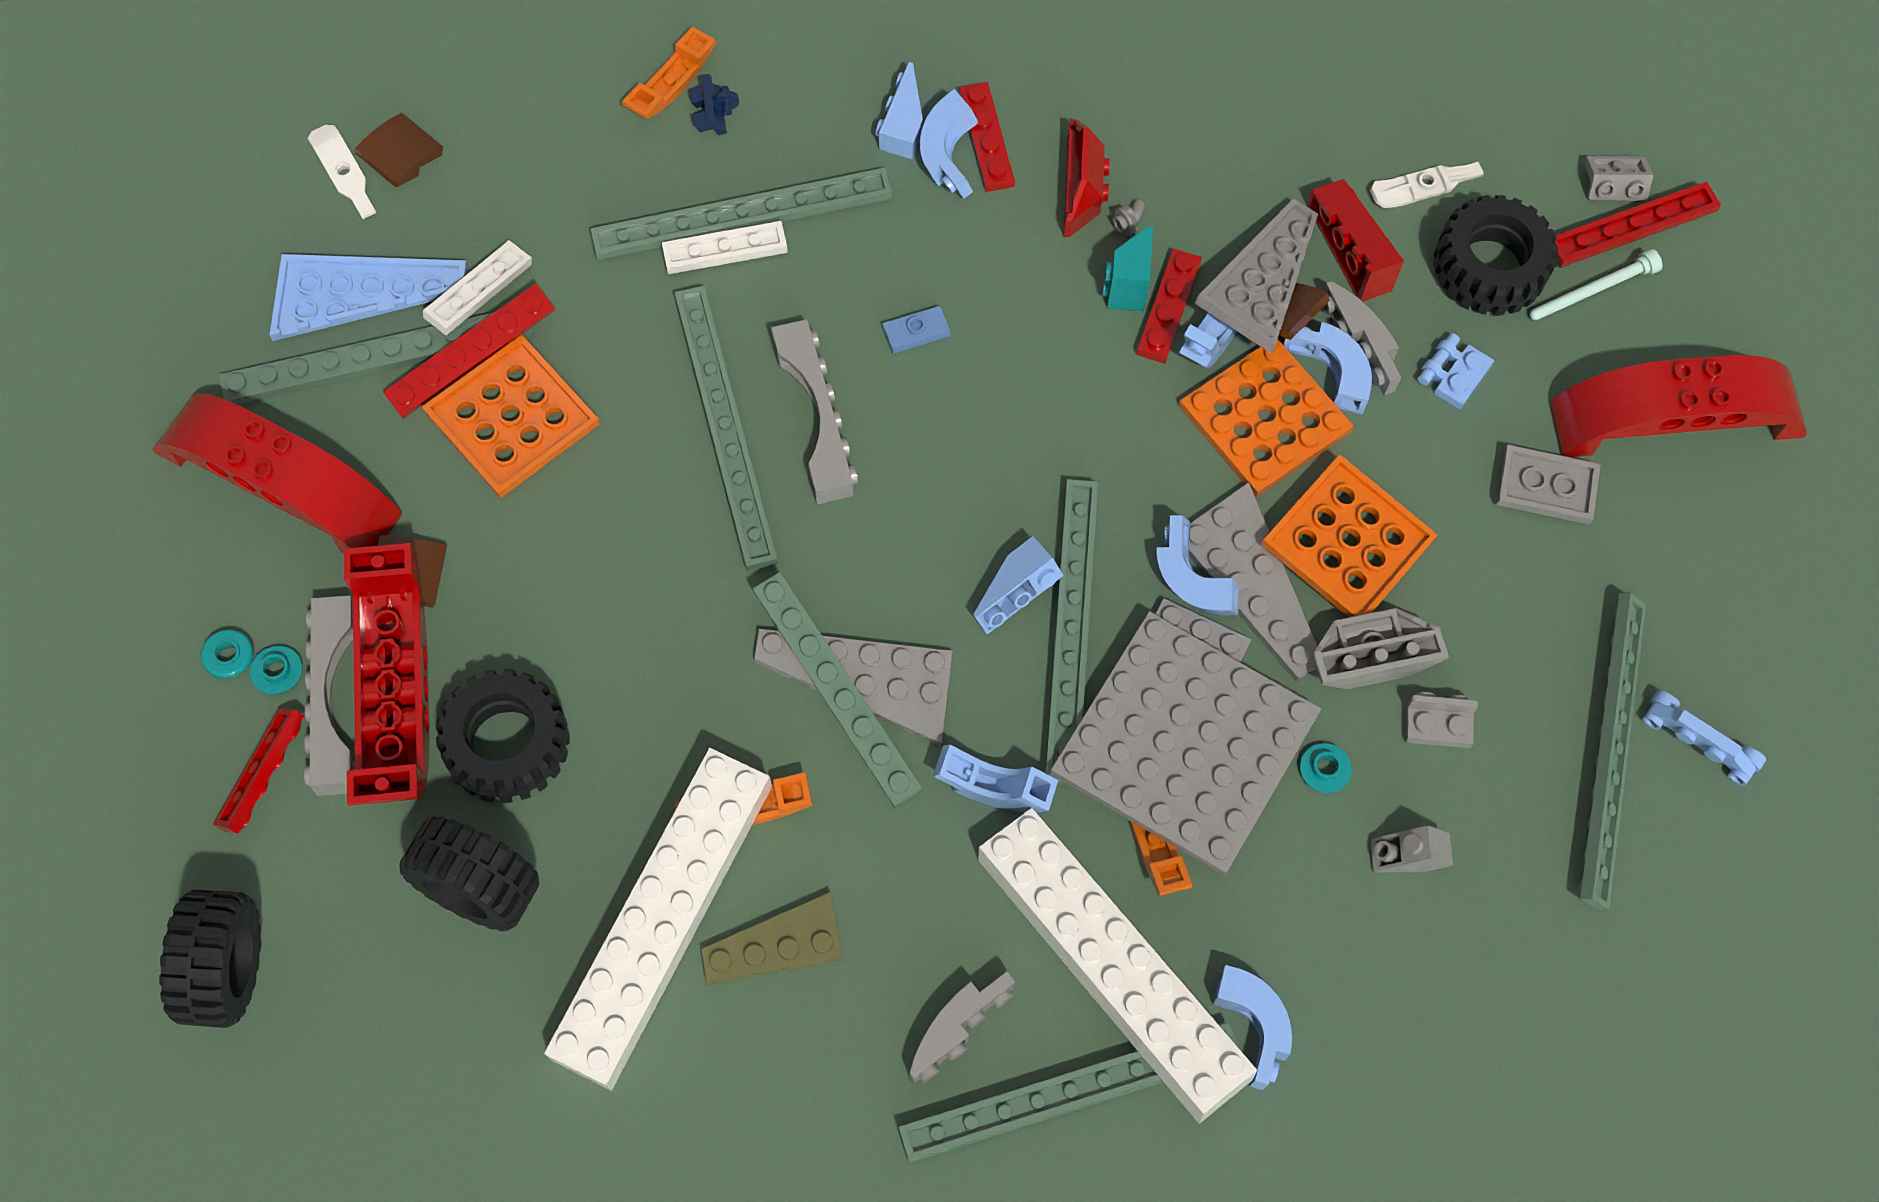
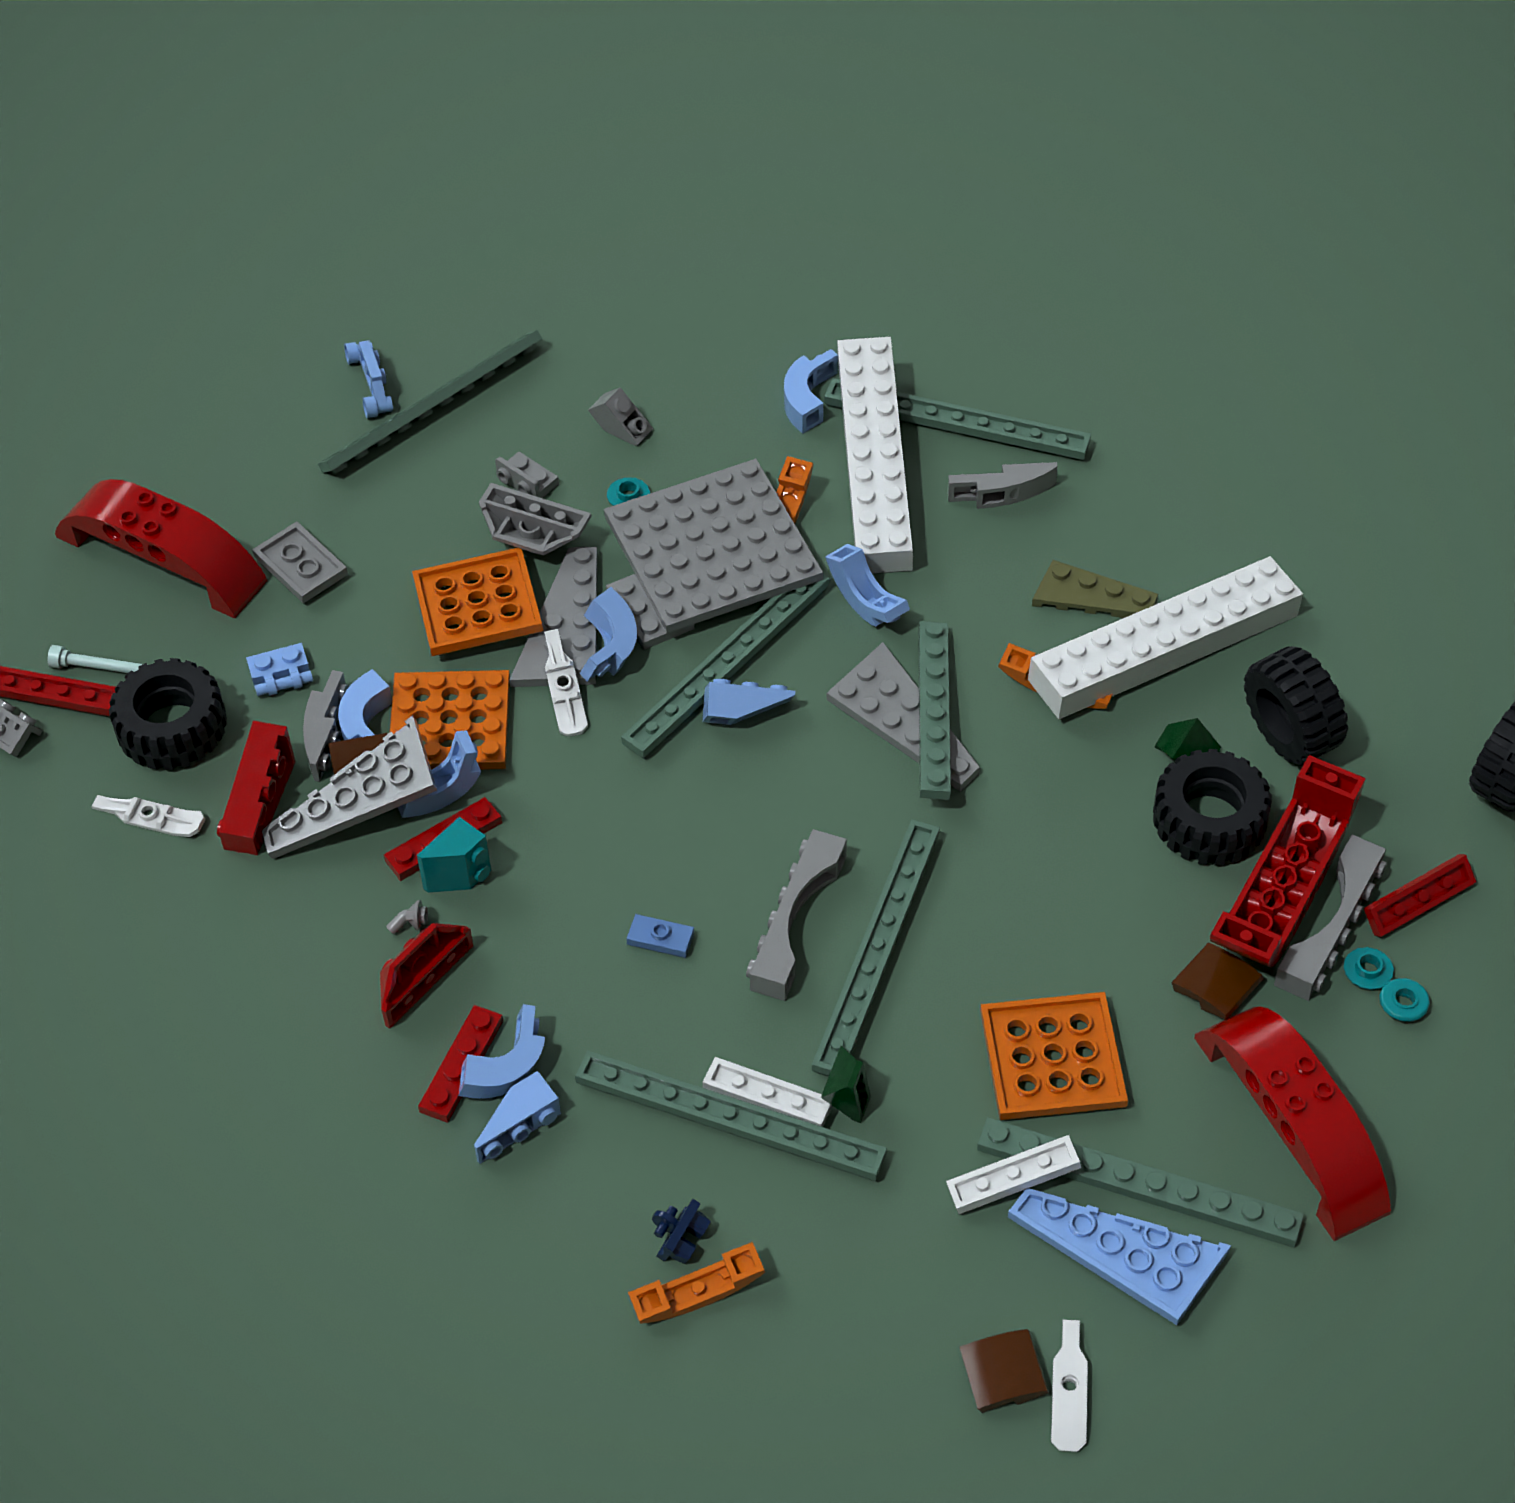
camera: 140 degrees left, 15 degrees down
(469, 351) = (1054, 1123): red plate -> none
(571, 803) = (1186, 737): none -> dark green slope
(660, 278) = (847, 1086): none -> dark green slope
(1179, 495) = (565, 699): none -> white piece

